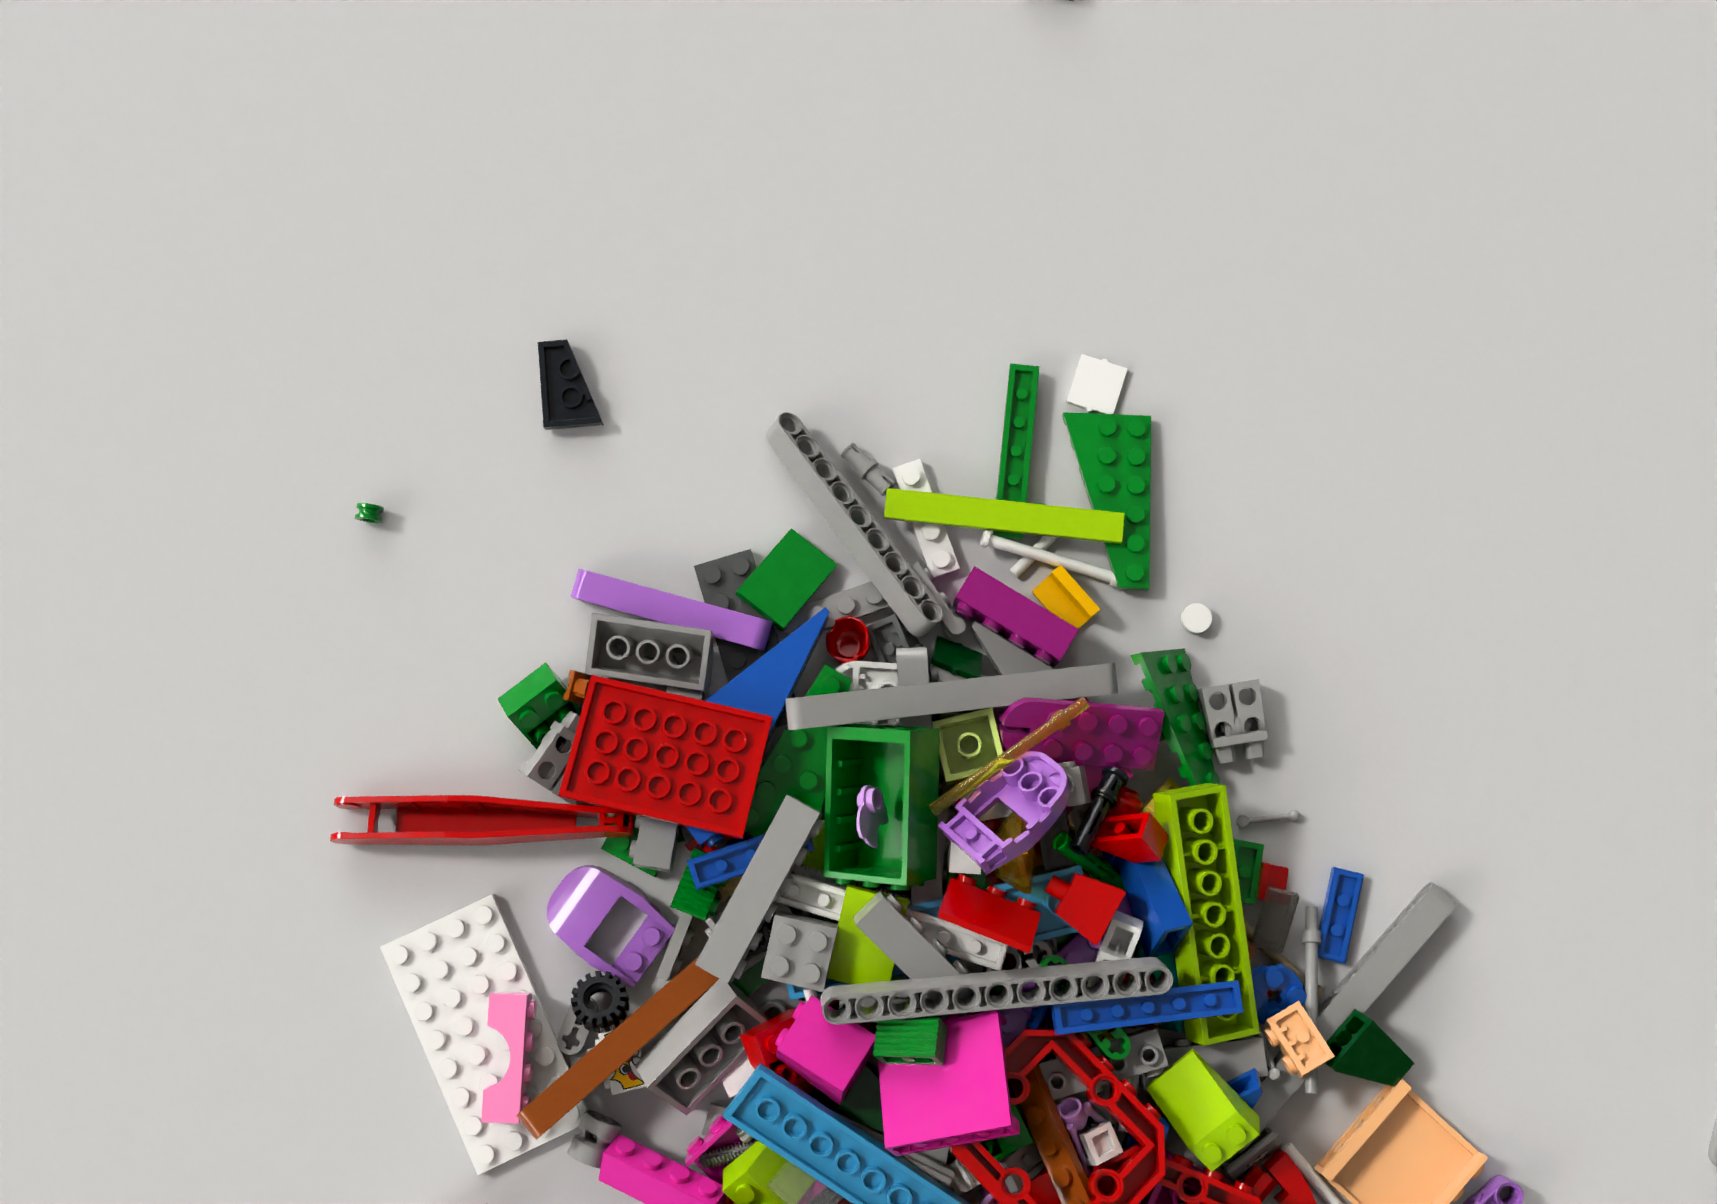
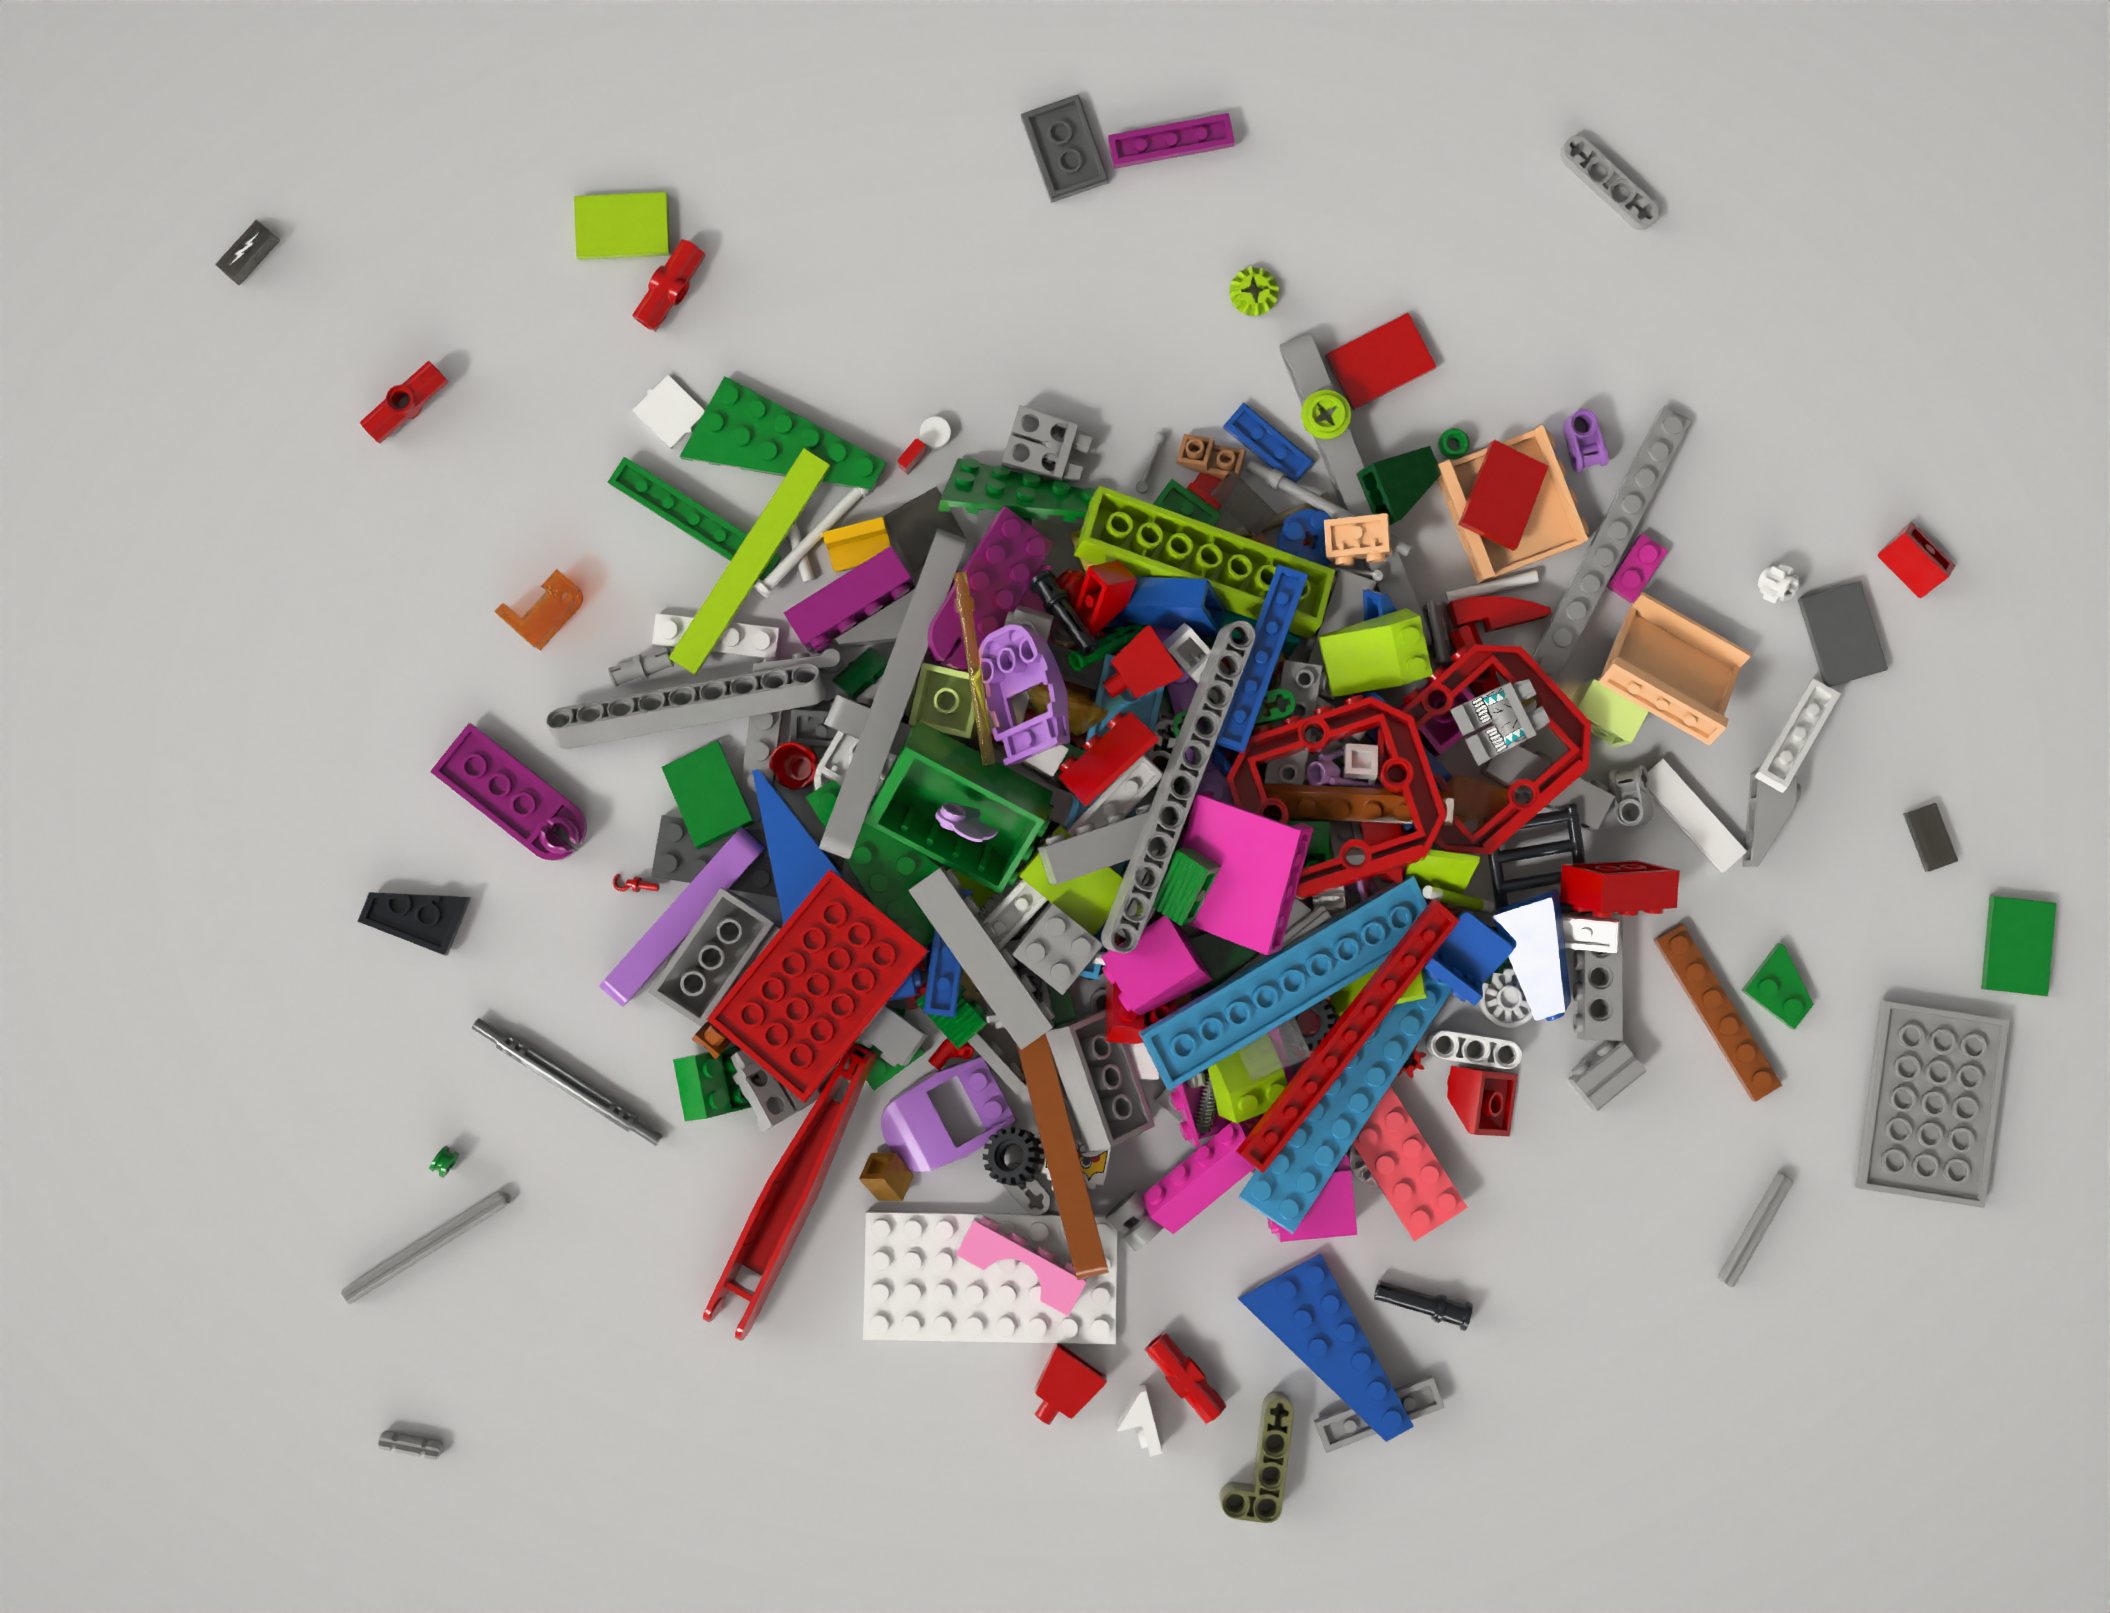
camera: 65 degrees left, 5 degrees up
(116, 603) = (410, 1445): none -> light grey axle
(290, 533) = (425, 1247): none -> light grey axle
(421, 1148) = (1066, 1384): none -> red torso
(485, 583) = (567, 1081): none -> dark grey axle
(531, 897) = (886, 1176): none -> pearl gold panel
(665, 895) = (948, 1050): none -> red arm
(681, 556) = (636, 884): none -> red hand
(705, 415) = (511, 795): none -> magenta plate
(874, 369) = (548, 613): none -> clear orange piece
(973, 159) = (388, 415): none -> red piece
(1109, 642) = (916, 526): none -> clear smoke tile
(1165, 608) = (912, 456): none -> red tile
(1203, 331) = (669, 285): none -> red piece
(1233, 268) = (622, 225): none -> lime tile
(1298, 868) = (1210, 459): none -> medium nougat slope
(1405, 950) = (1327, 401): none -> lime gear
(1405, 1153) = (1503, 495): none -> red tile
(1435, 1087) = (1462, 440): none -> green plate
(1453, 831) = (1244, 301): none -> lime gear
(1464, 979) = (1380, 361): none -> red tile
(1500, 607) = (1064, 148): none -> dark grey tile
(1558, 696) = (1171, 140): none -> magenta plate

